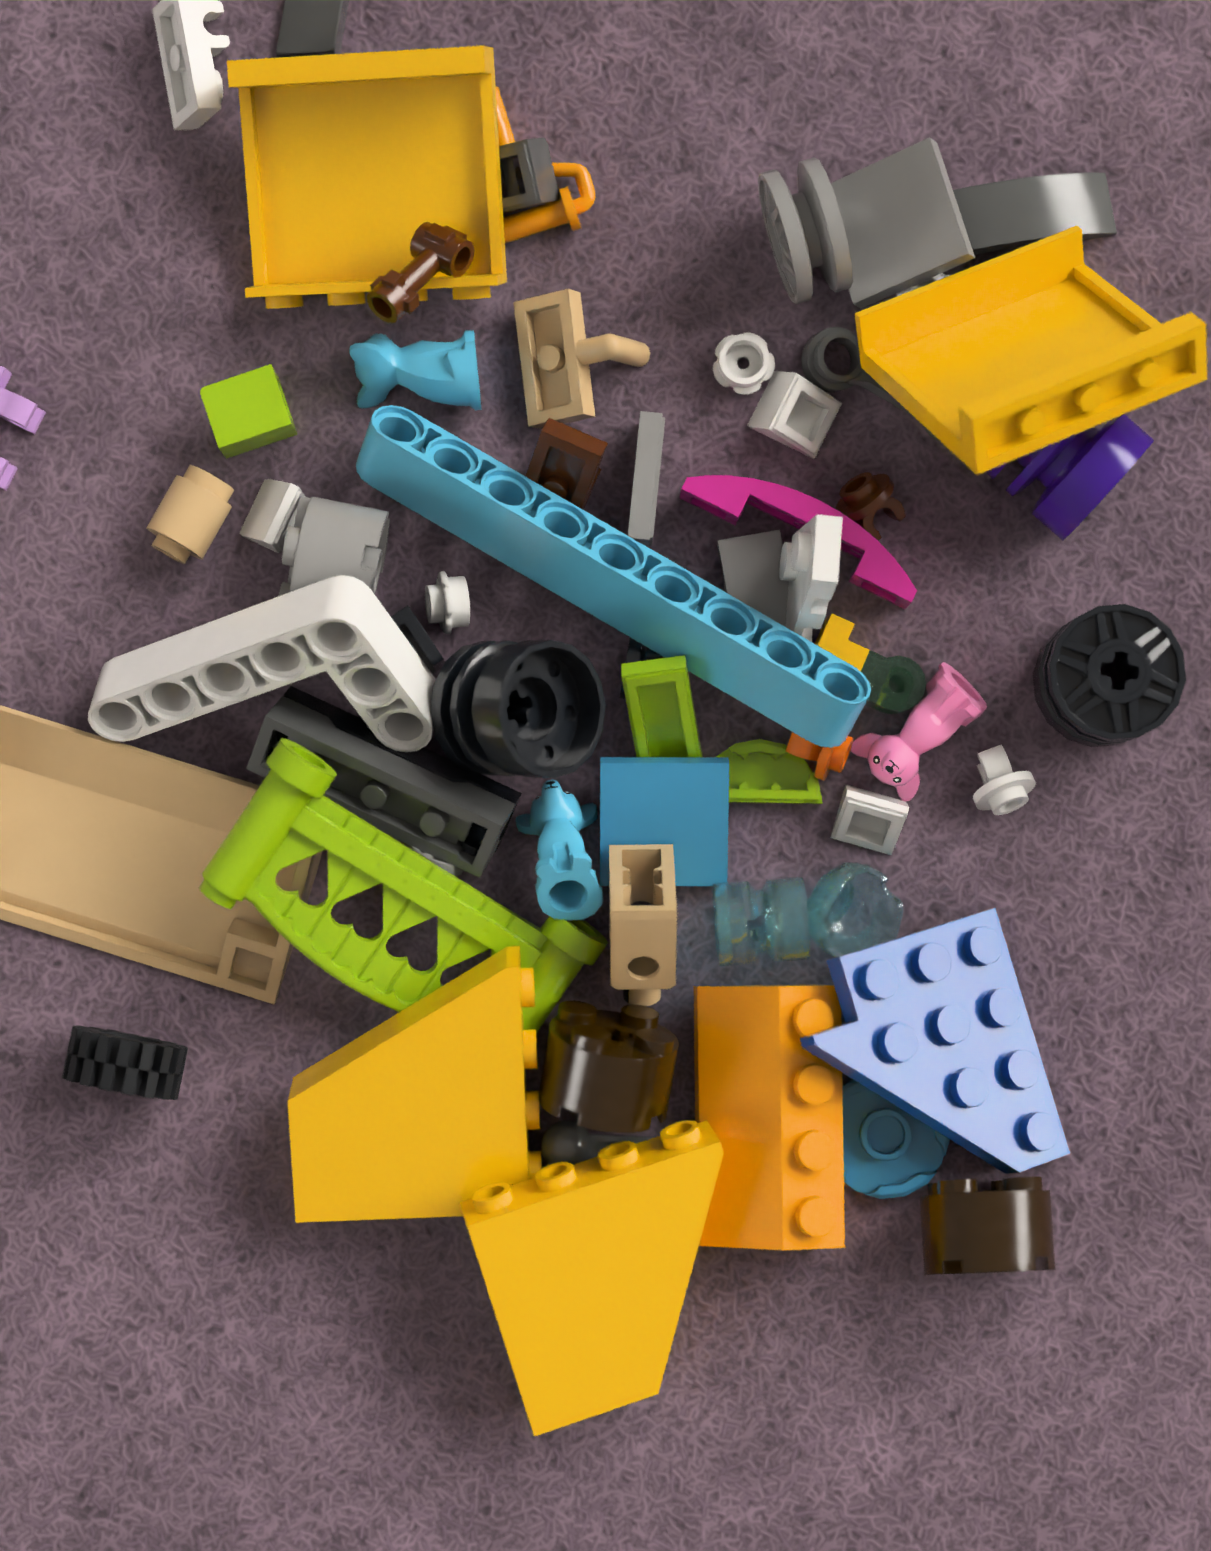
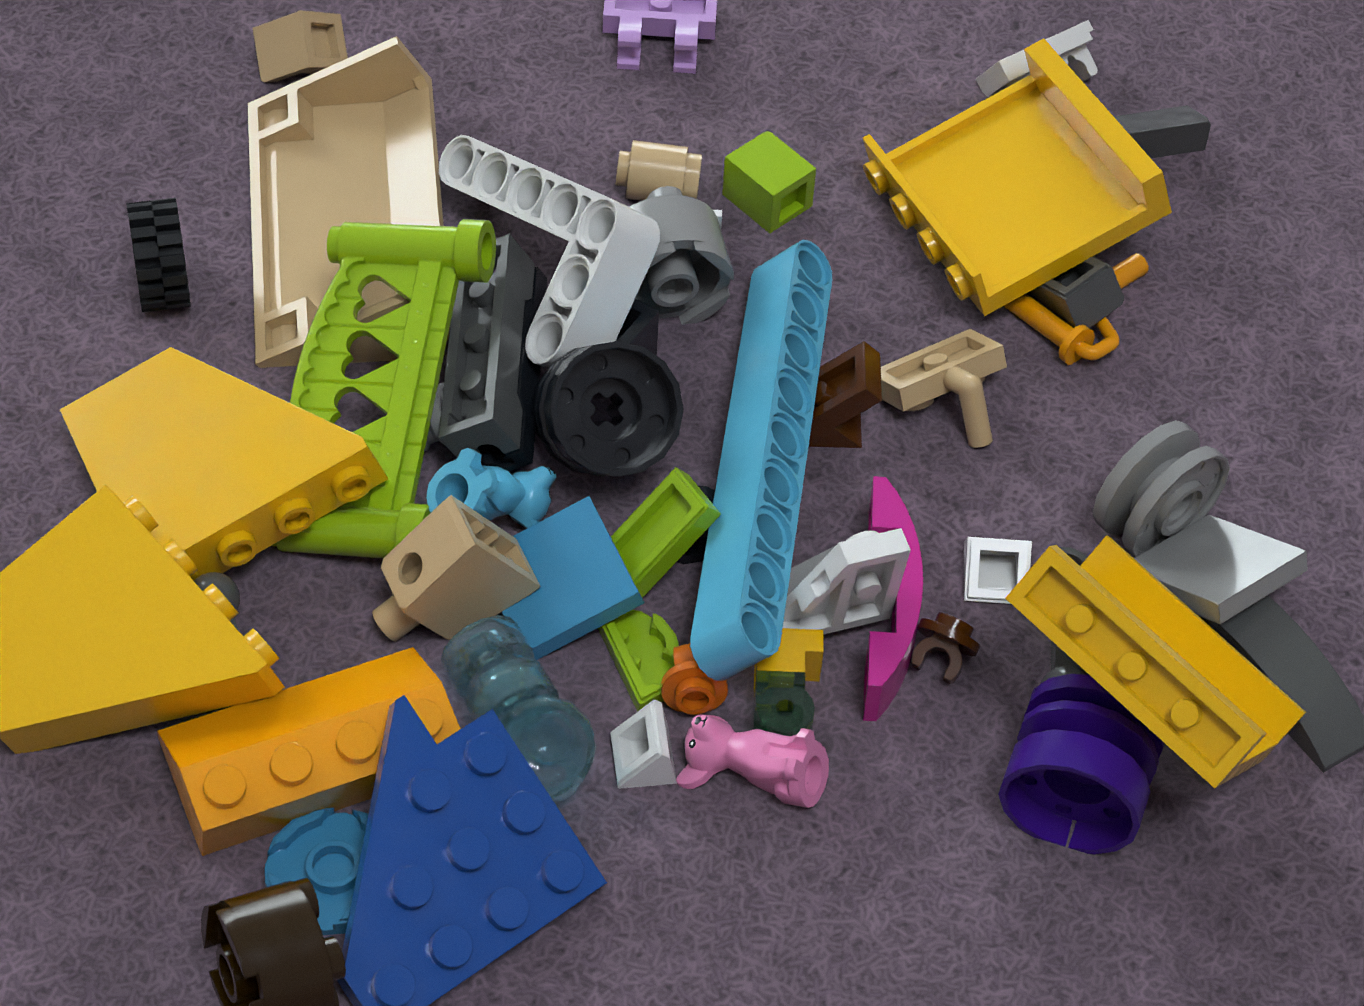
camera: 70 degrees right, 35 degrees down
(429, 368) = (875, 288): medium azure animal -> none
(433, 251) = (977, 229): reddish brown bar -> none
(448, 602) = (684, 360): white plate -> none
(608, 1066) = (304, 584): dark brown brick -> none
(646, 477) = (849, 467): light grey tile -> none
(743, 346) = (1019, 497): white plate -> none
(1002, 788) = (729, 840): white plate -> none
(1081, 700) = (886, 877): black wheel -> none

